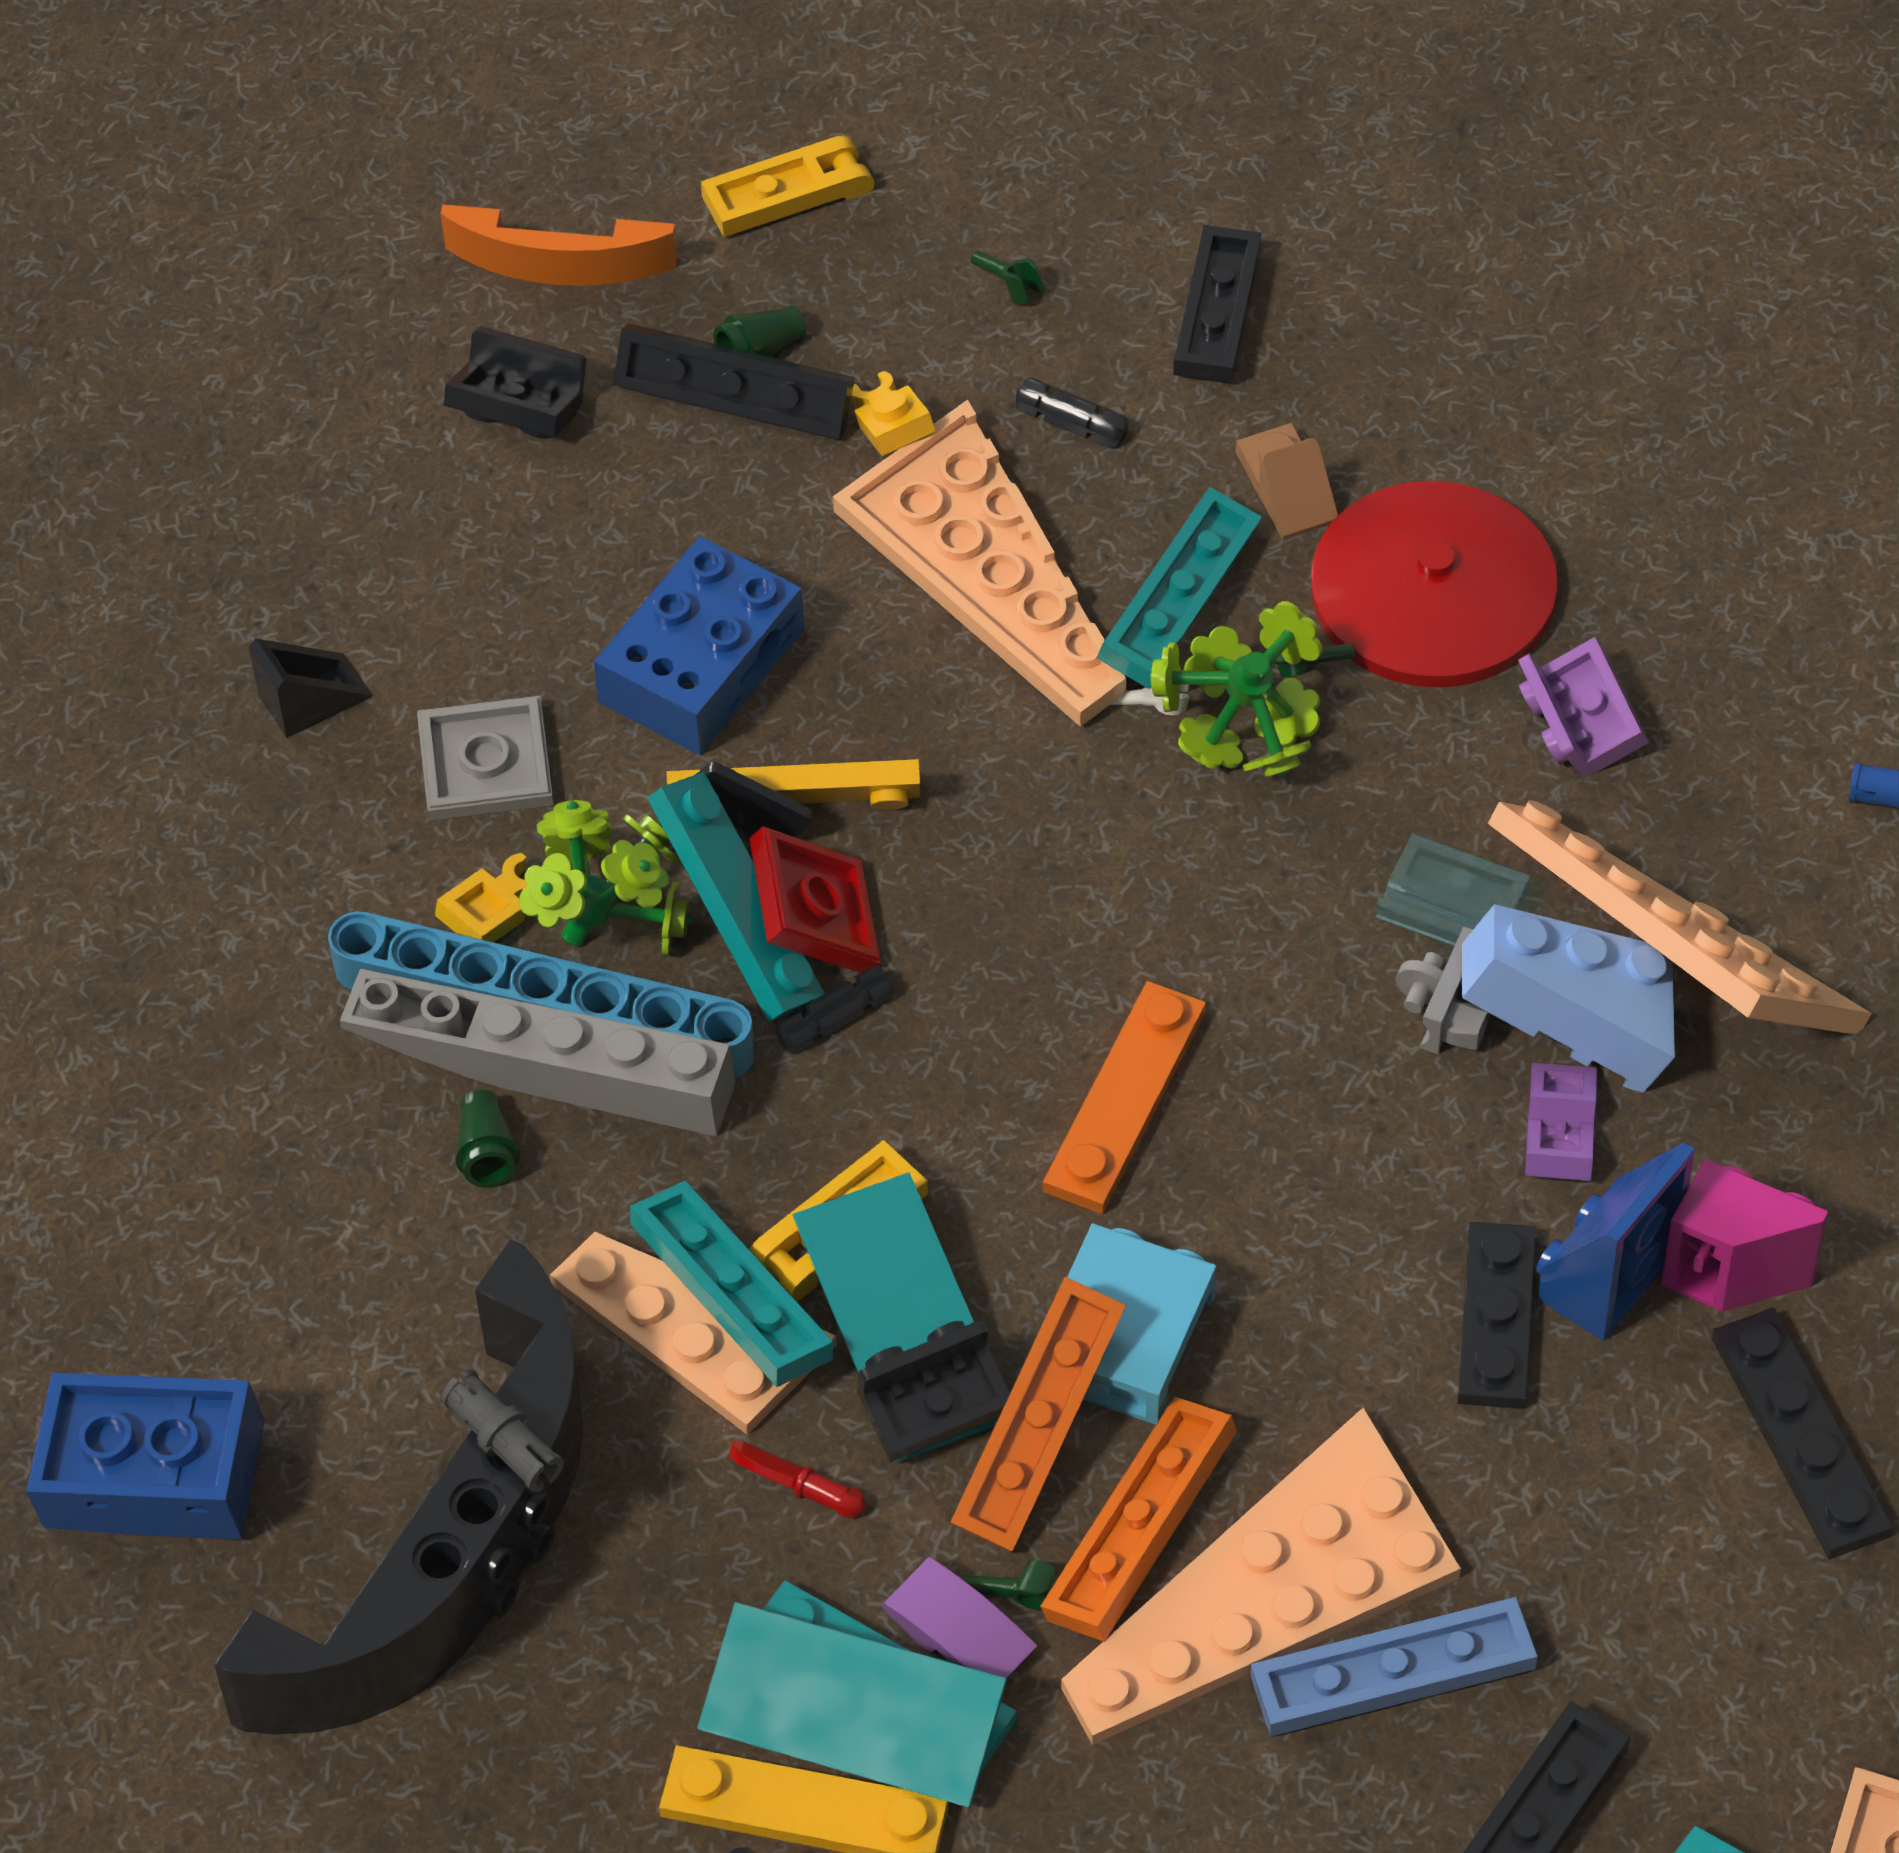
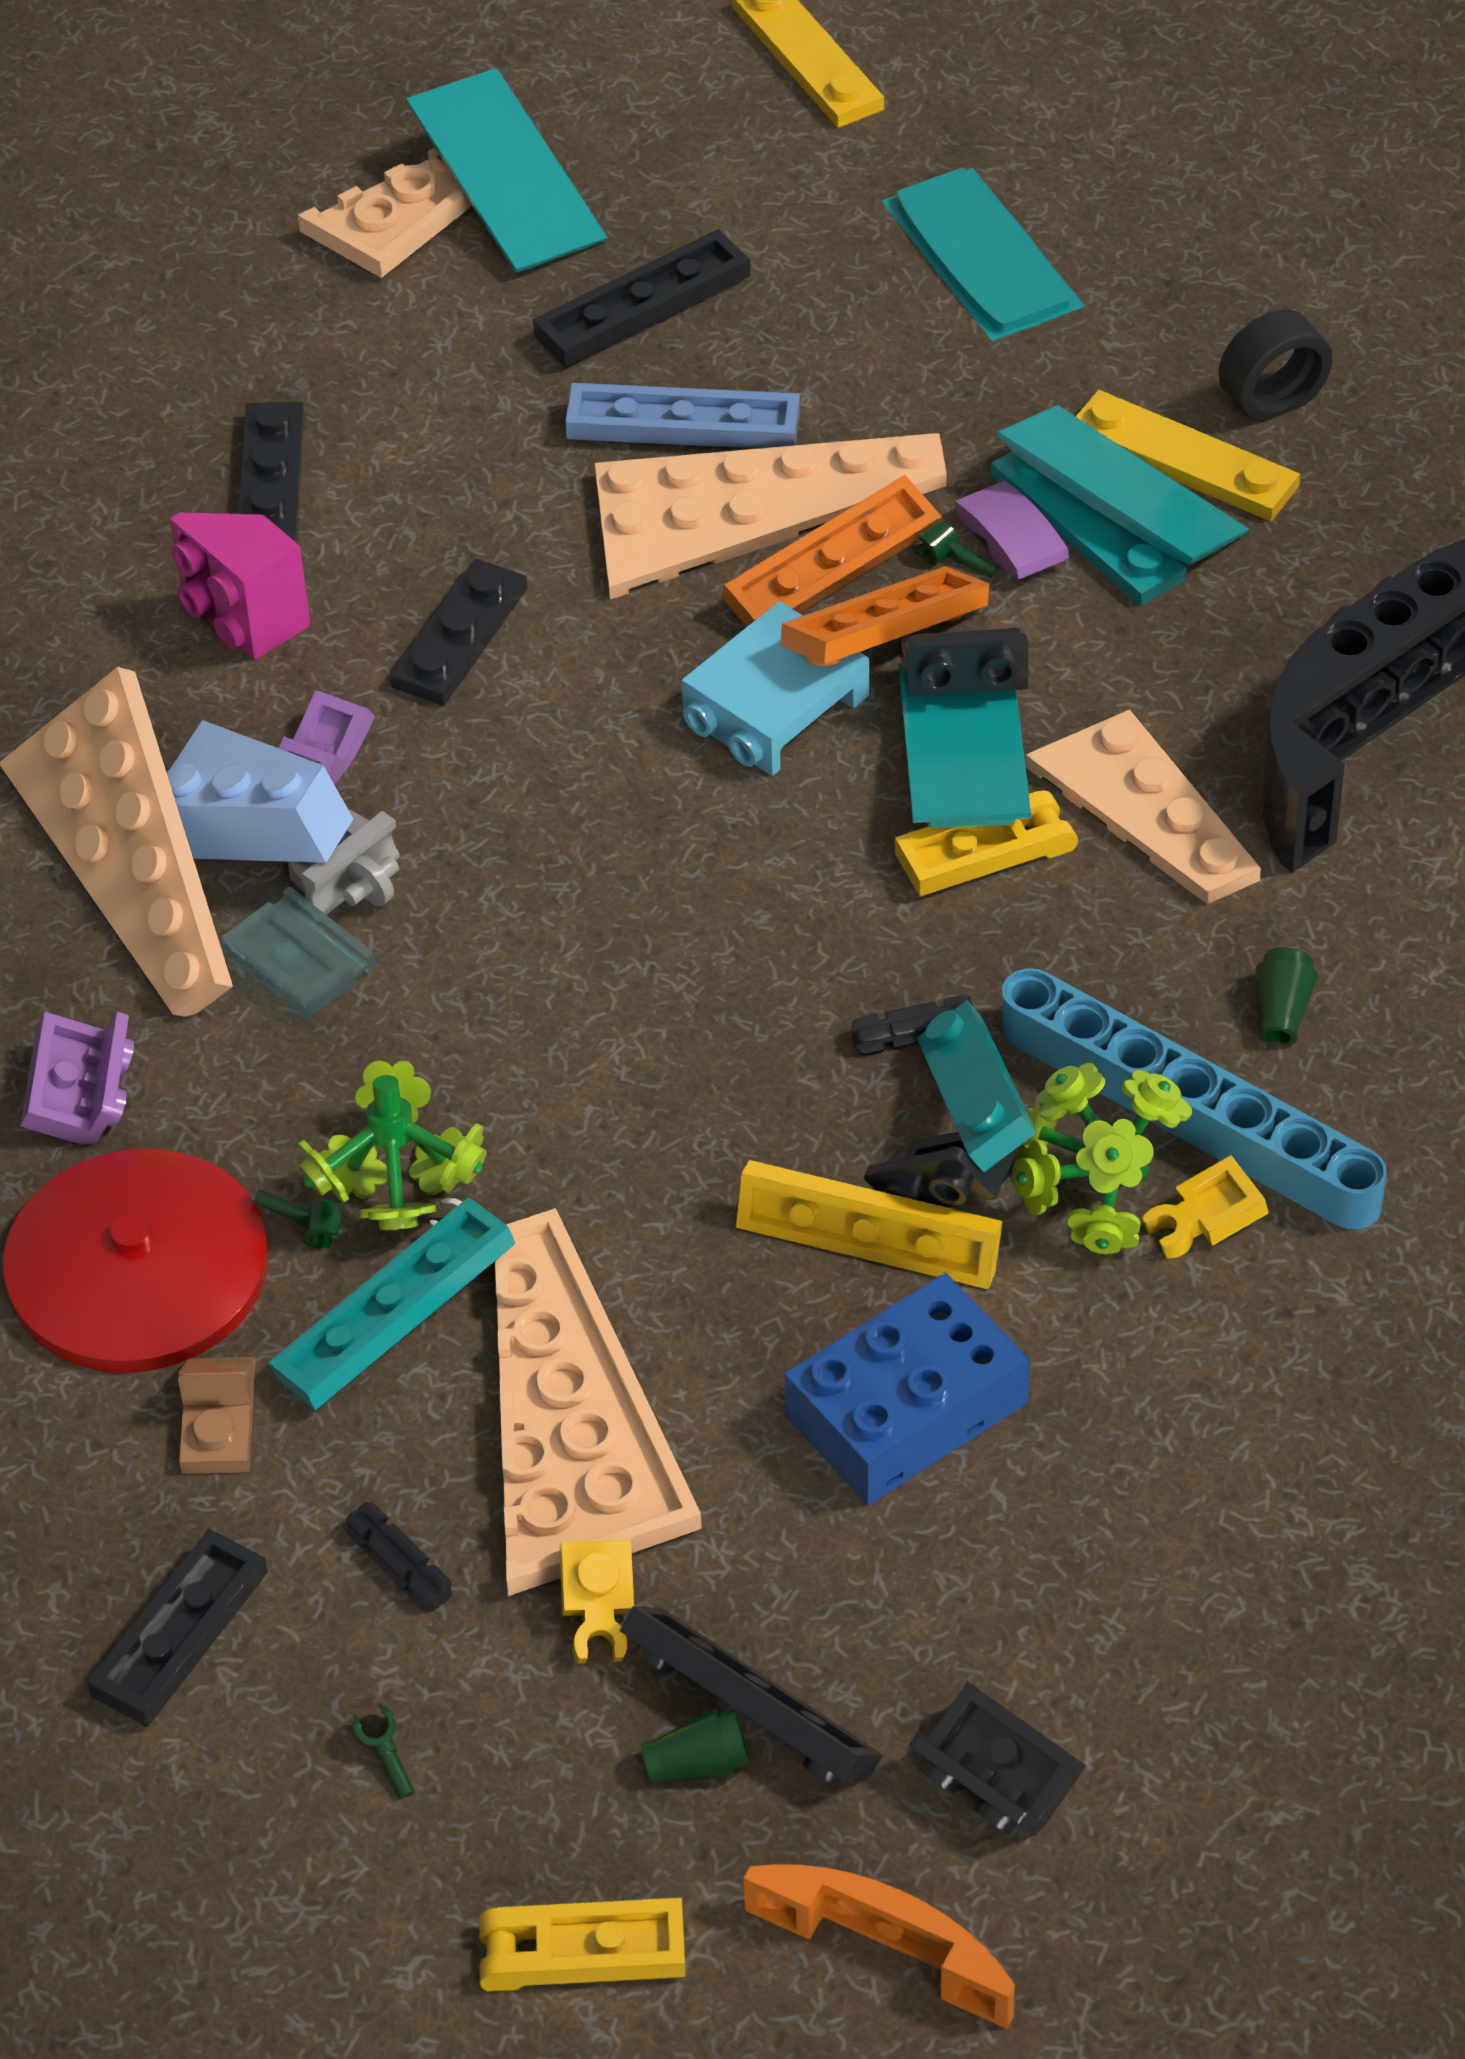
camera: 160 degrees left, 5 degrees down
(303, 683) = (1335, 1479): black slope -> none
(484, 758) = (1166, 1369): light grey tile -> none
(502, 1430) = (1357, 632): dark grey pin -> none
(547, 1051) = (1214, 1030): light grey slope -> none
(731, 1283) = (1104, 801): teal plate -> none
(805, 1482) = (1101, 670): red piece -> none
(814, 900) = (897, 1090): red tile -> none
(1124, 1097) = (681, 881): orange plate -> none
(1616, 1244) = (338, 585): blue slope -> none

